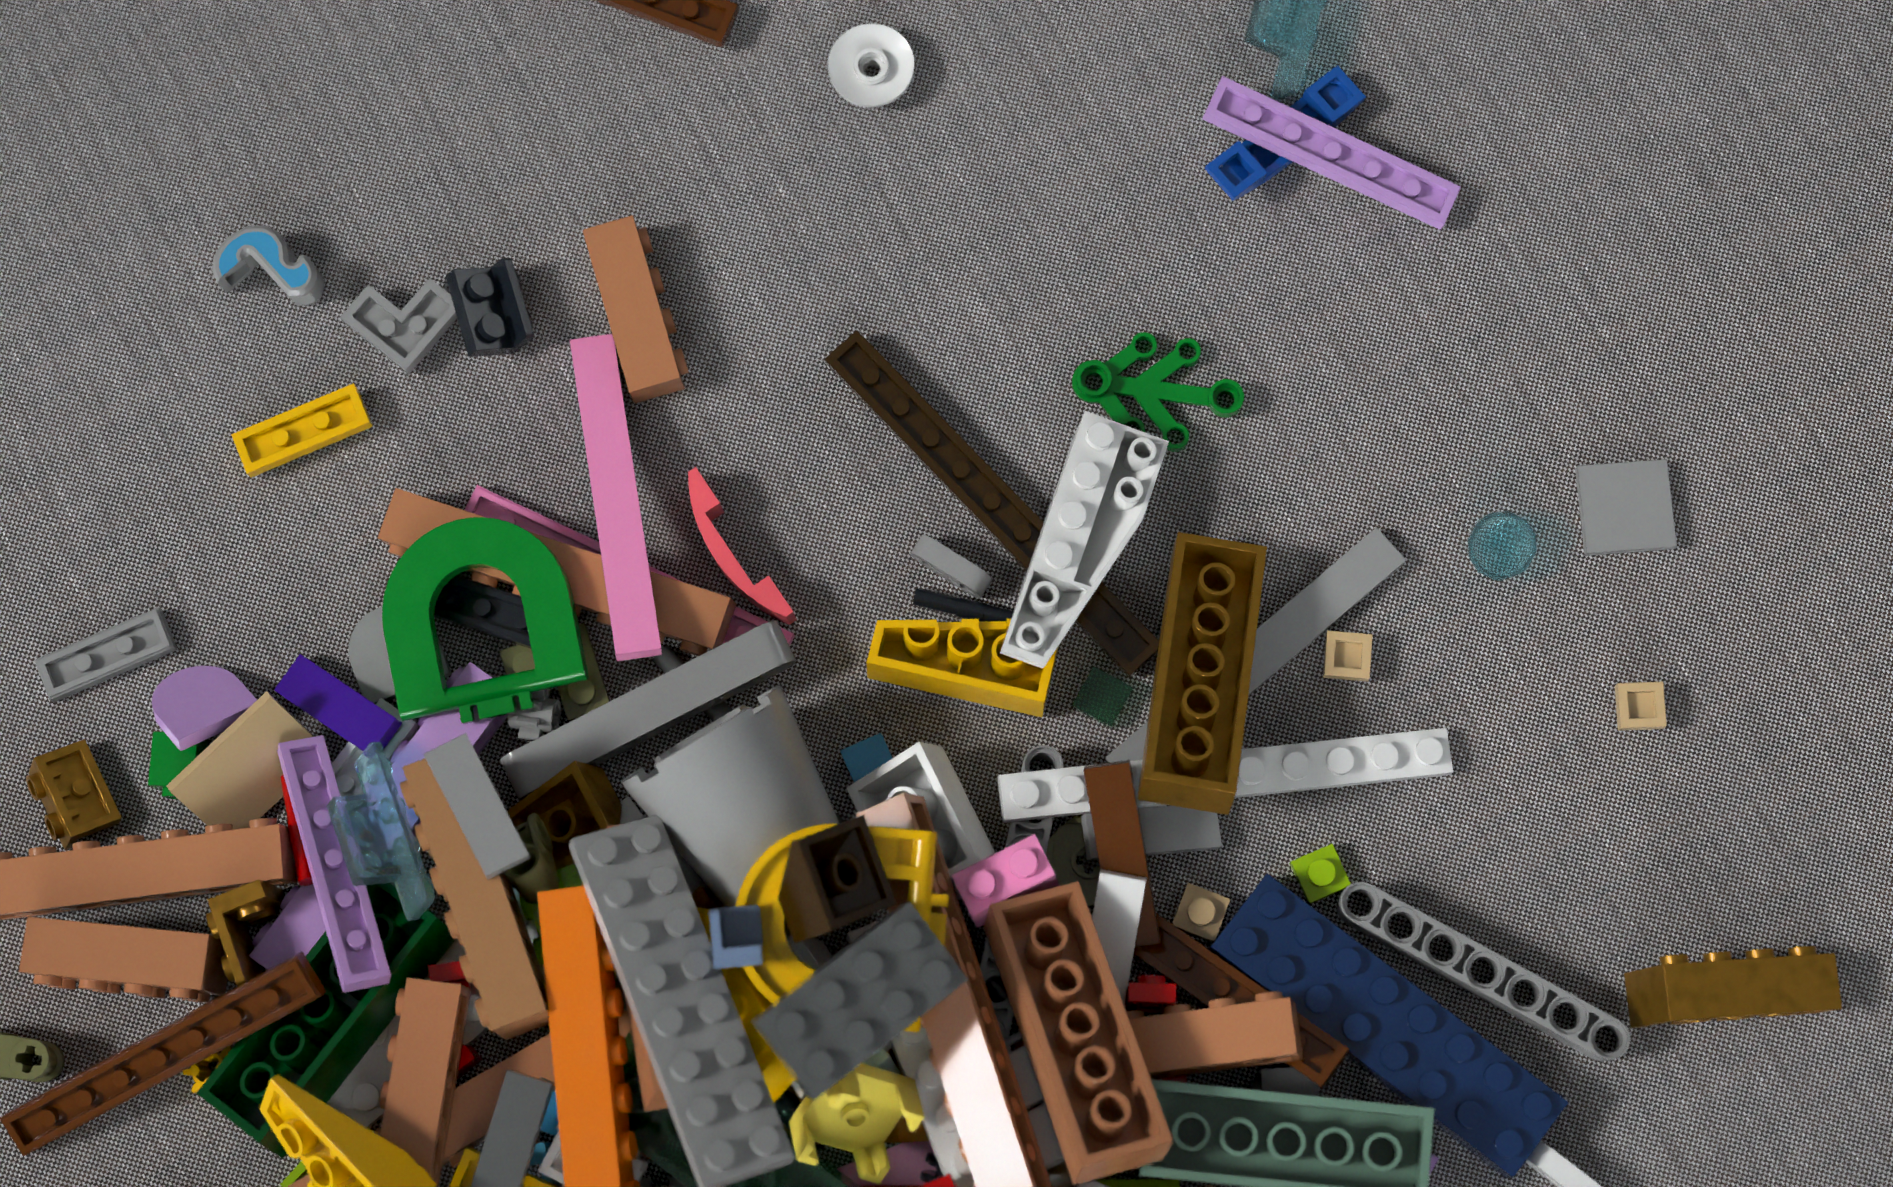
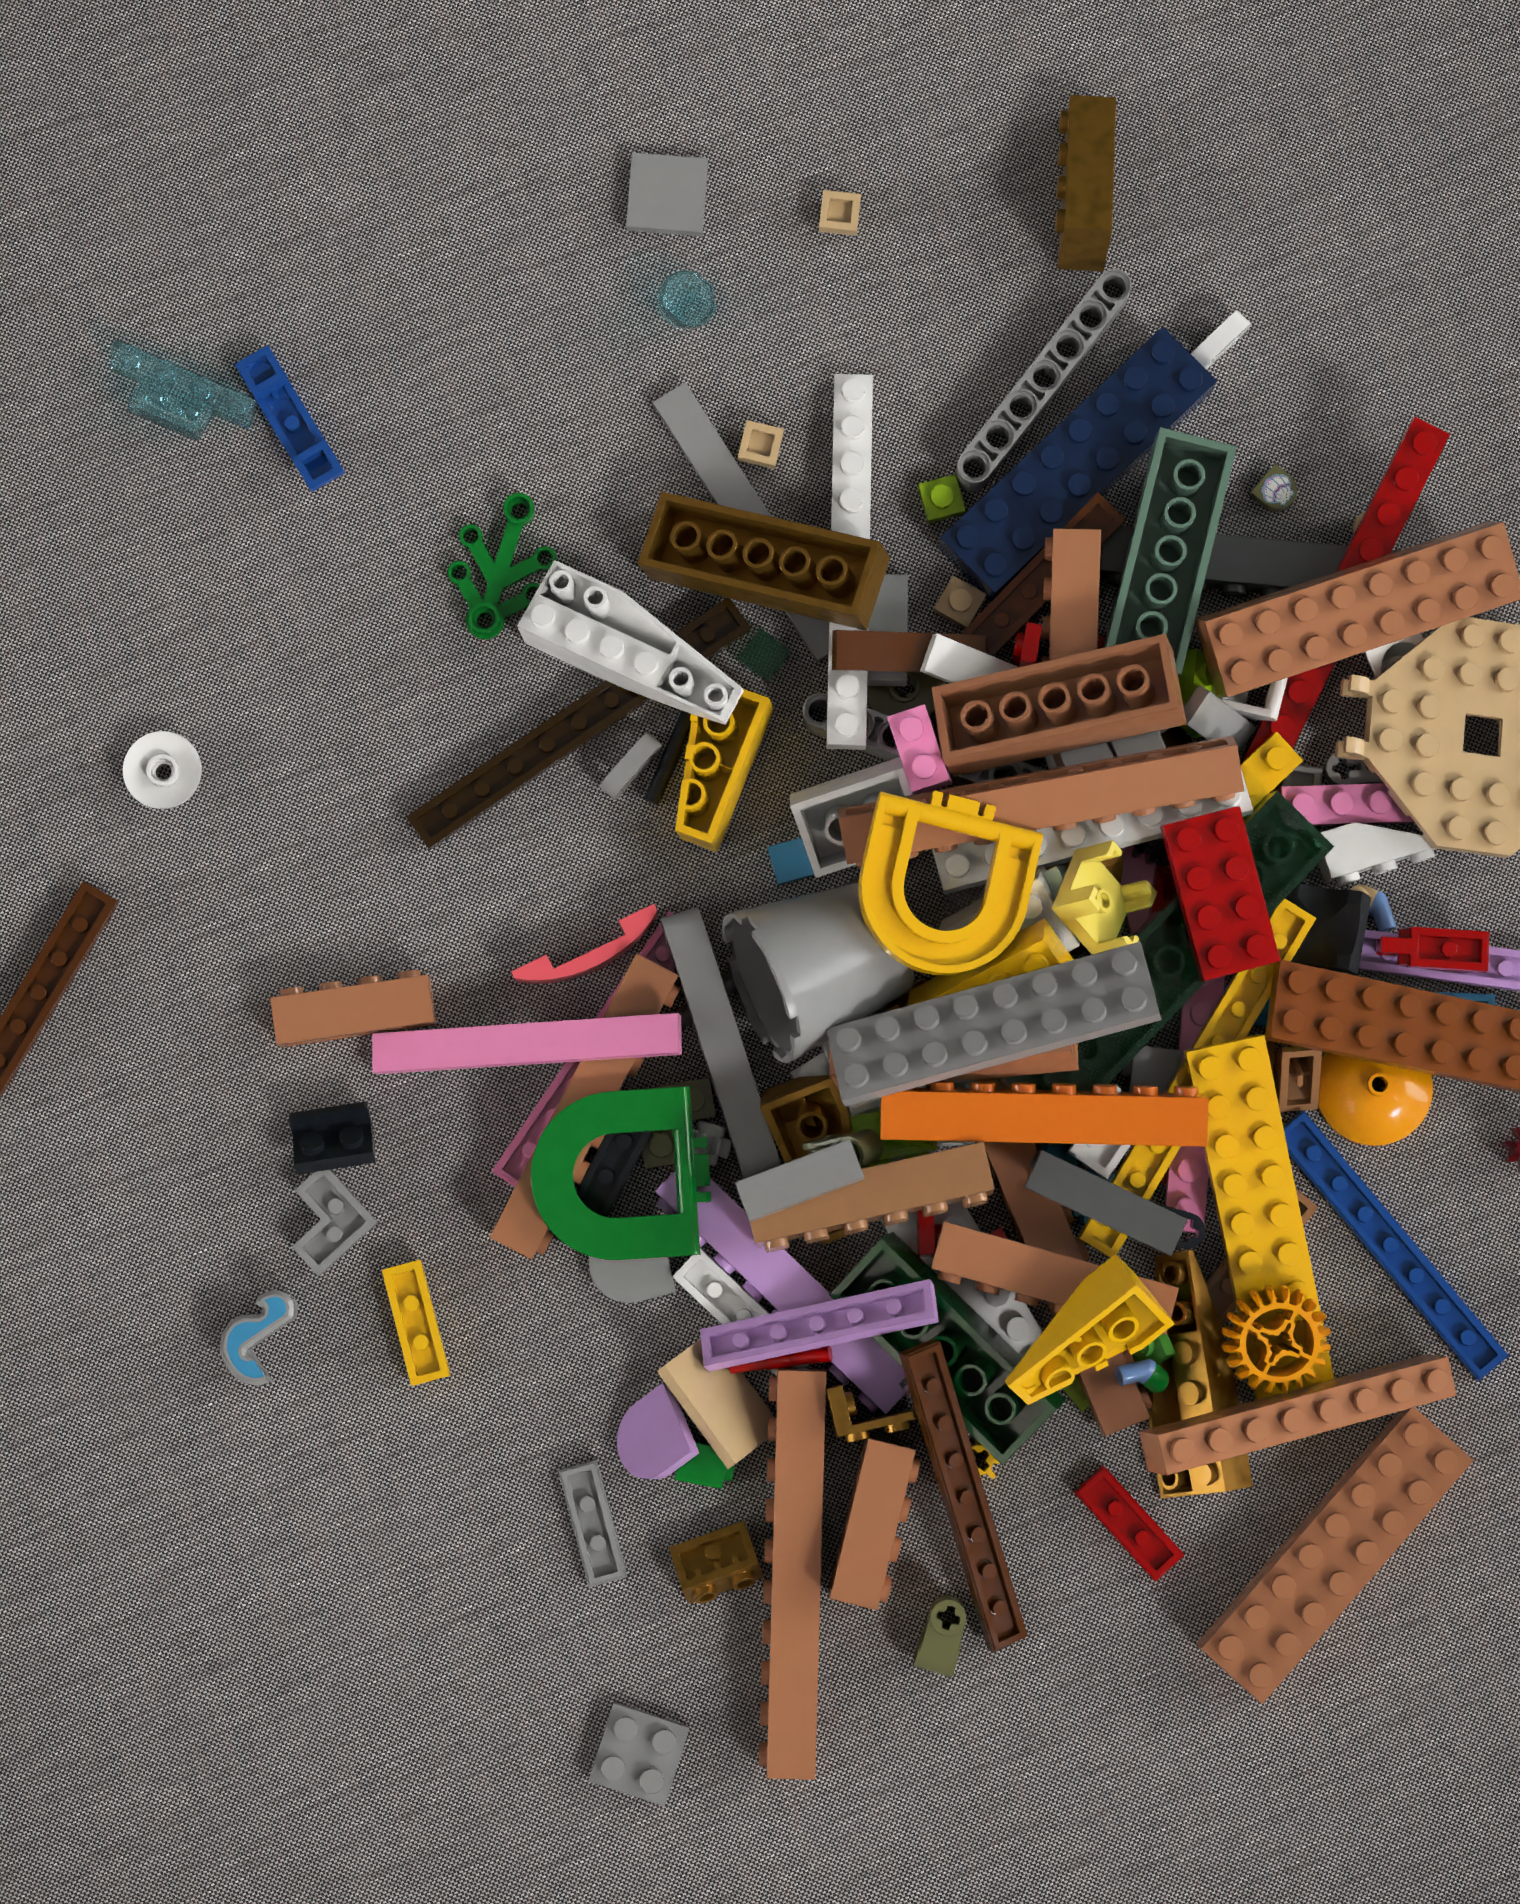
camera: 95 degrees left, 5 degrees up
(336, 705) = (674, 1315): dark purple tile -> none
(378, 835) = (801, 1280): clear light blue bracket -> none
(736, 936) = (948, 968): sand blue panel -> none
(833, 880) = (916, 878): dark brown slope -> none
(859, 1000) = (1016, 871): dark grey brick -> none
(1331, 152) = (314, 383): lavender plate -> none

